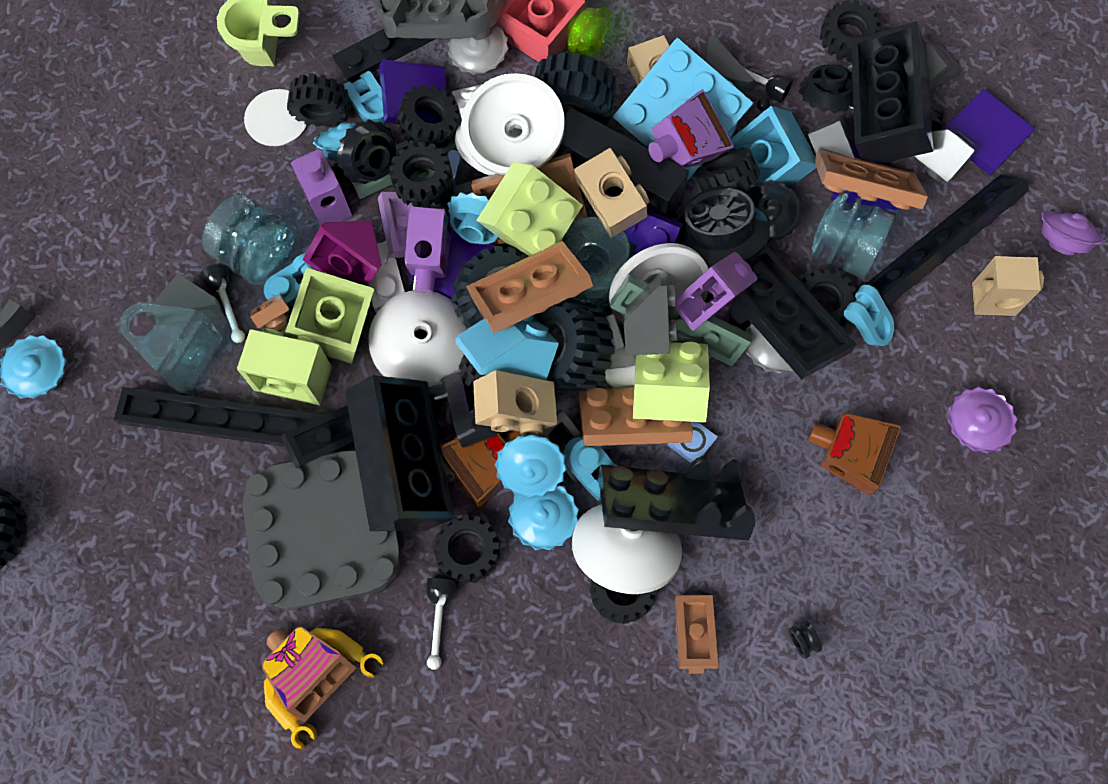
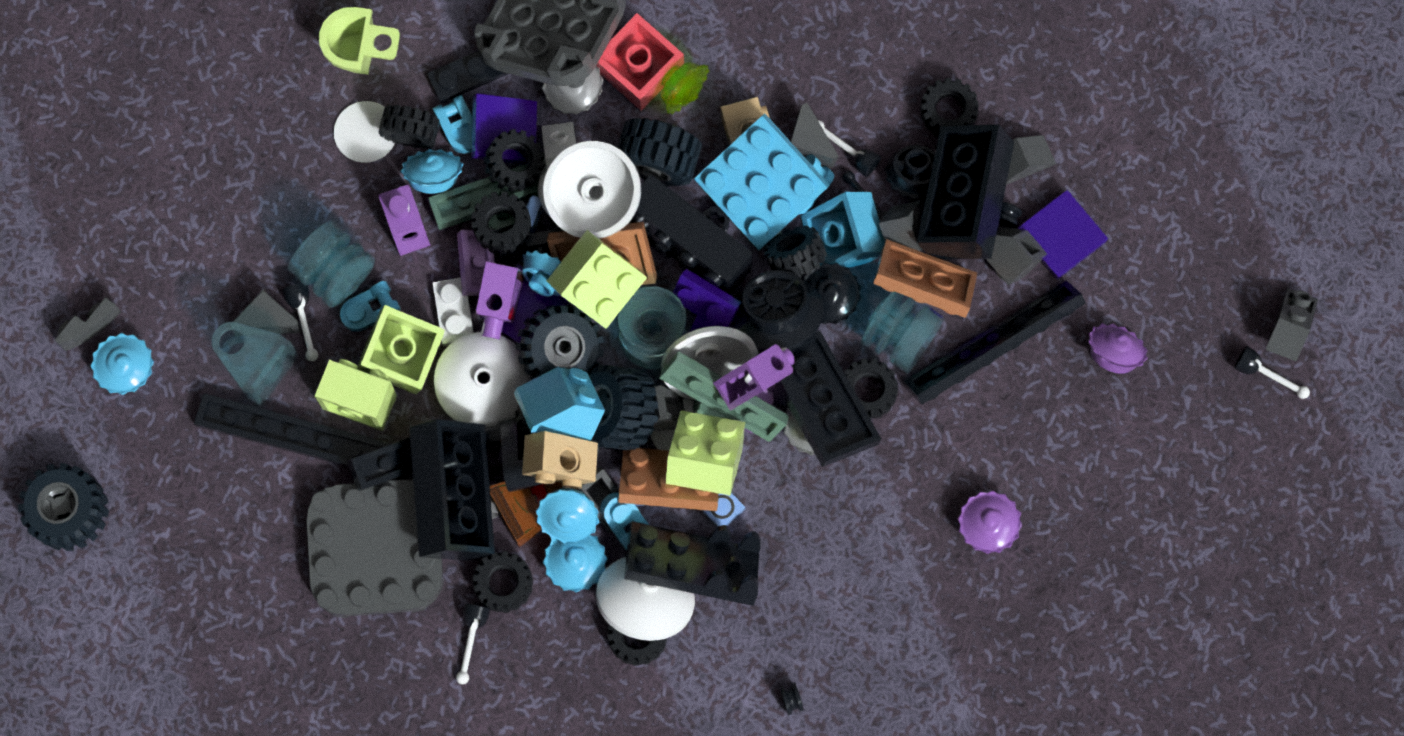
camera: 10 degrees right, 5 degrees up
(271, 313) = (347, 341): nougat plate -> none
(306, 672) = (351, 671): torso -> none
(345, 251) = (422, 292): magenta slope -> none
(366, 151) = (453, 193): black piece -> none
(529, 286) = (585, 353): nougat plate -> none
(614, 212) = (661, 255): tan brick -> none
(648, 319) = (690, 399): dark grey slope -> none
(690, 134) = (758, 215): medium lavender torso -> none
(696, 633) = (695, 680): nougat plate -> none
(856, 449) = (869, 534): dark orange torso -> none
(877, 324) = (913, 419): medium azure plate -> none
(1007, 285) = (1038, 398): tan brick -> none

